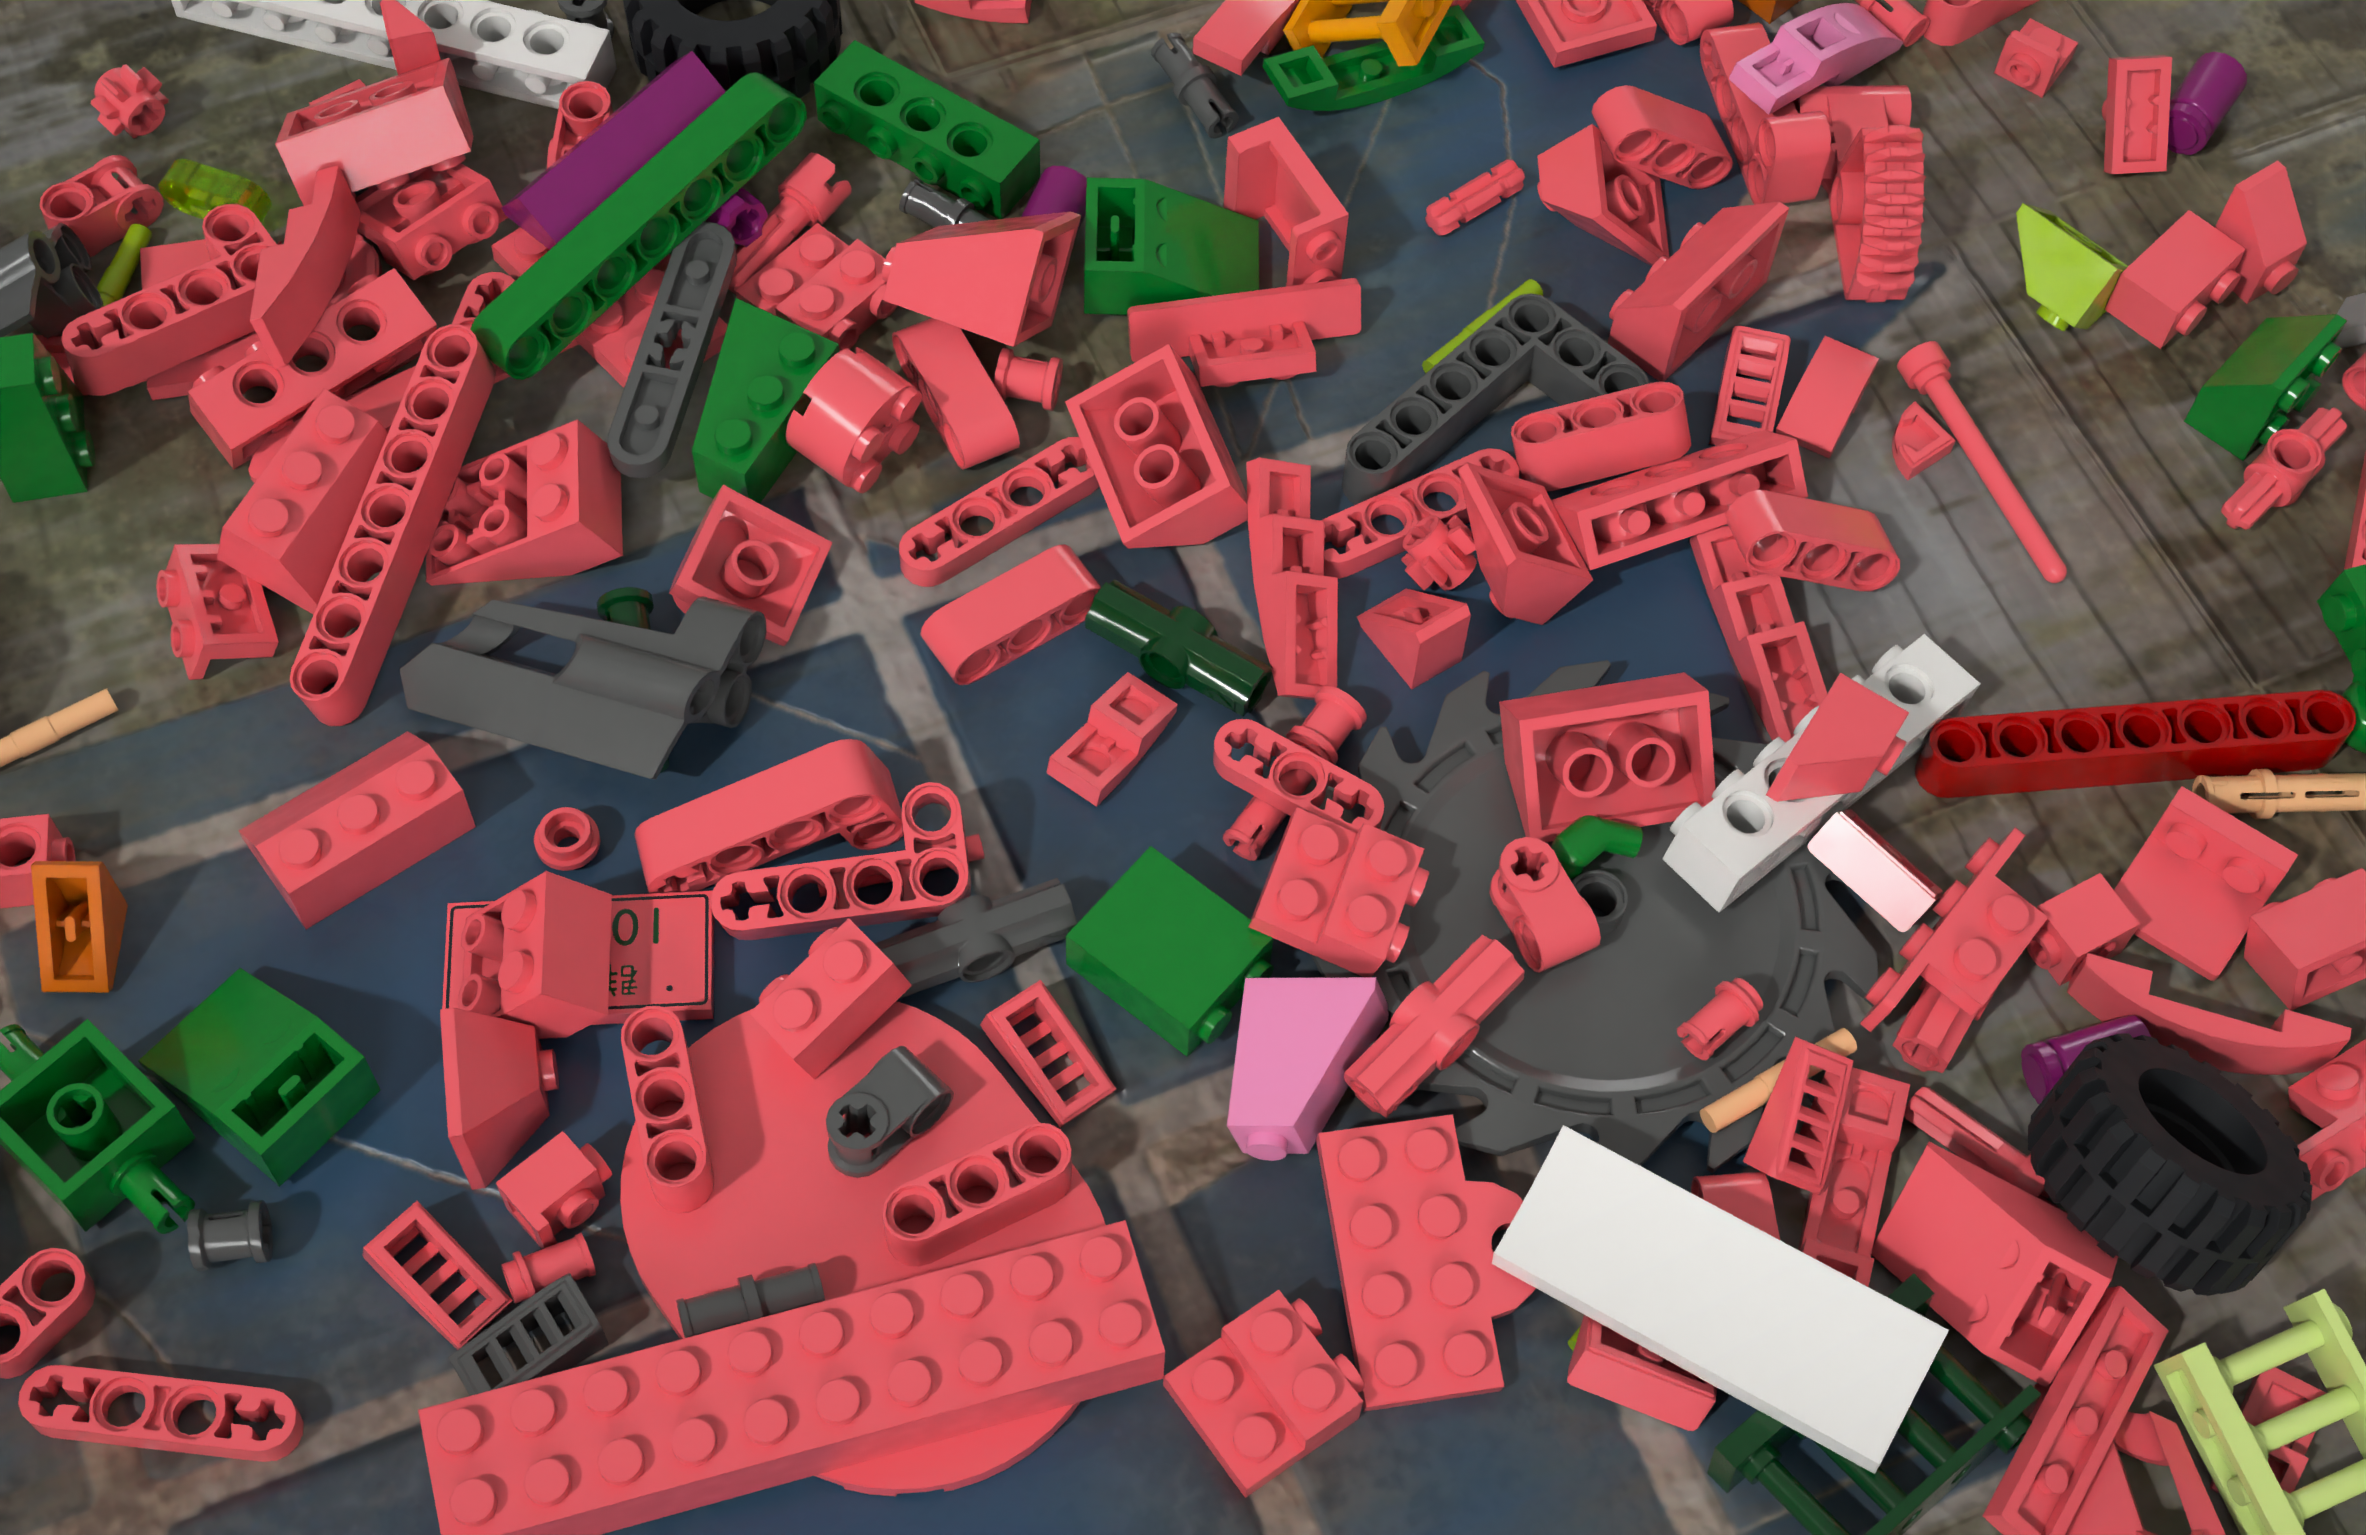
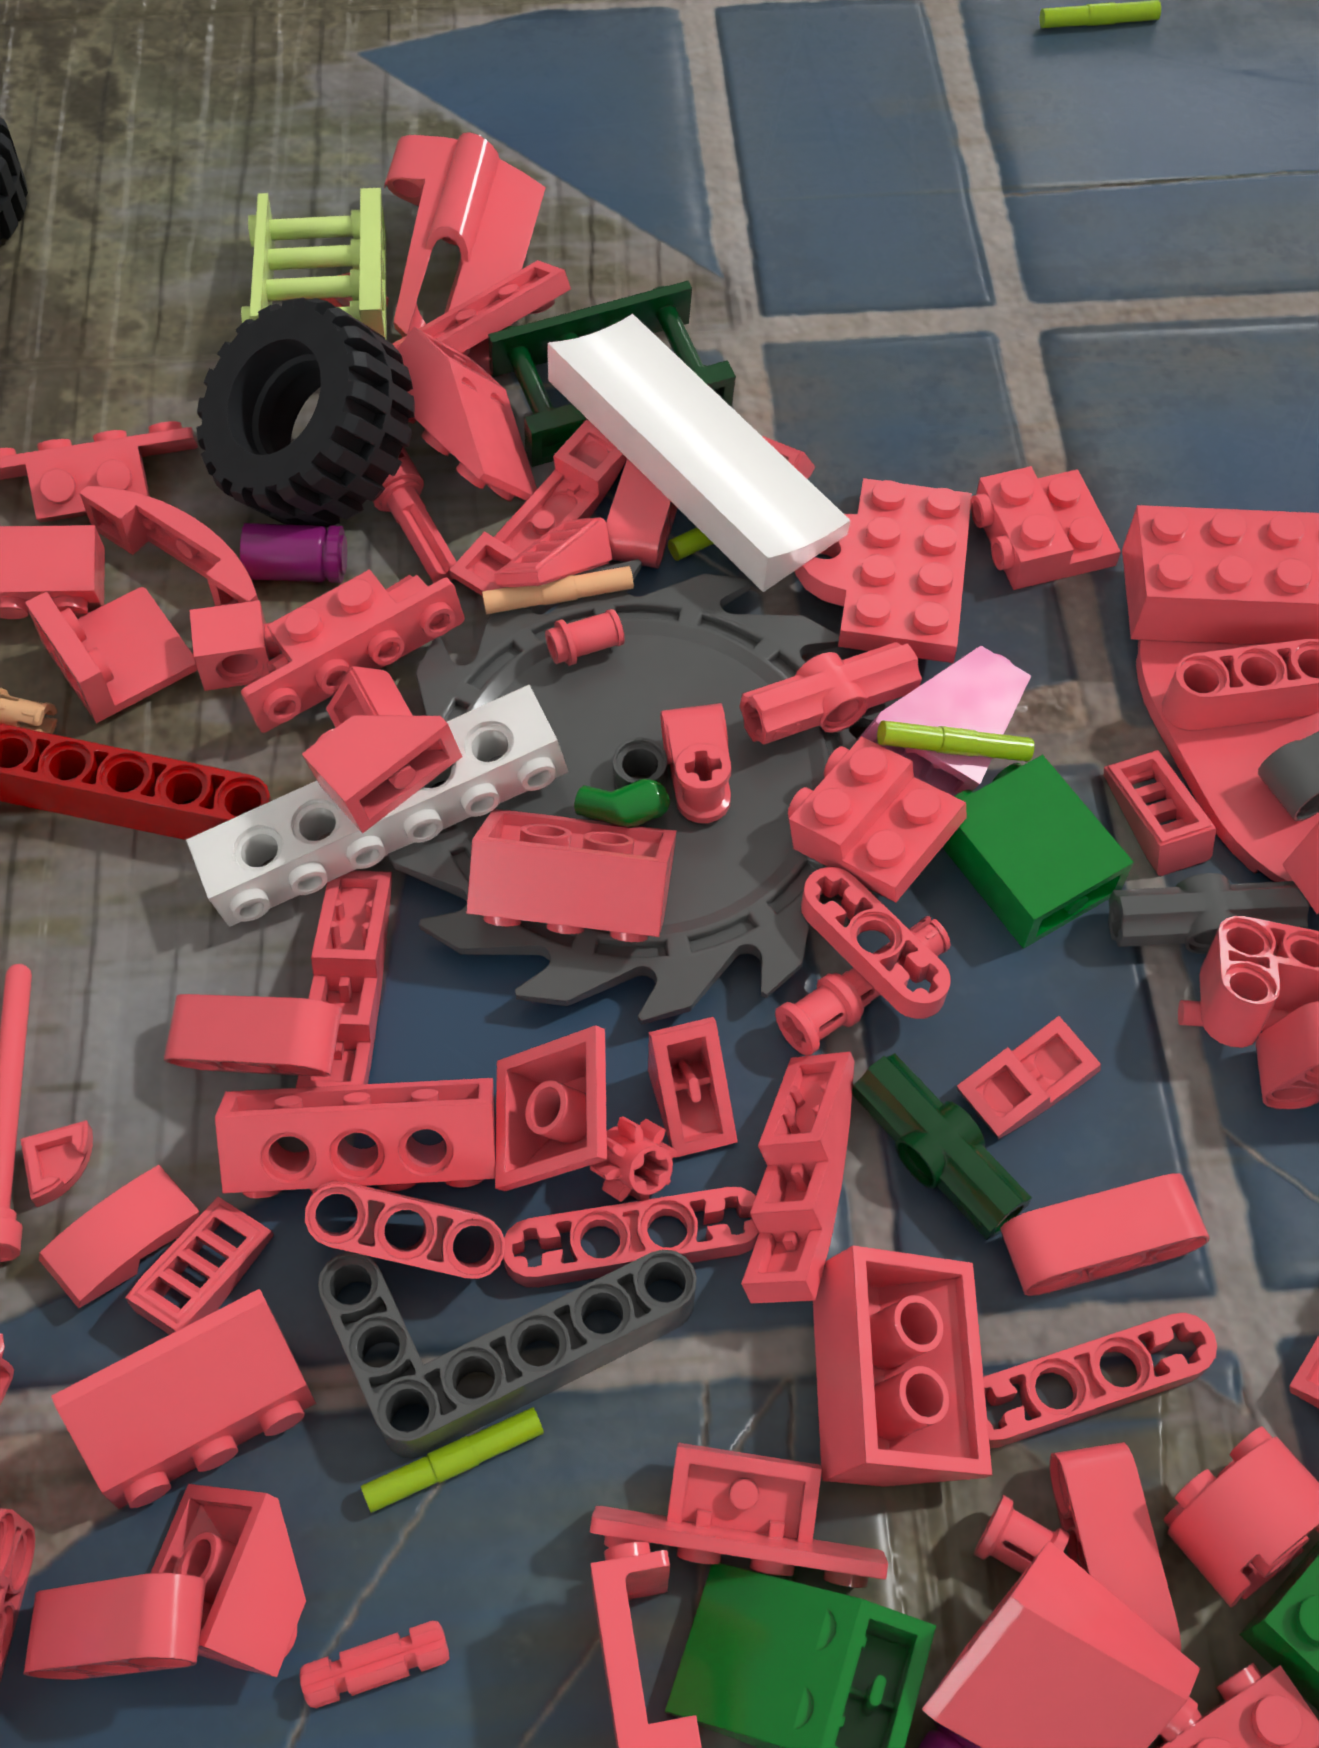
camera: 160 degrees left, 0 degrees up
(1285, 991) = (955, 741): none -> lime piece

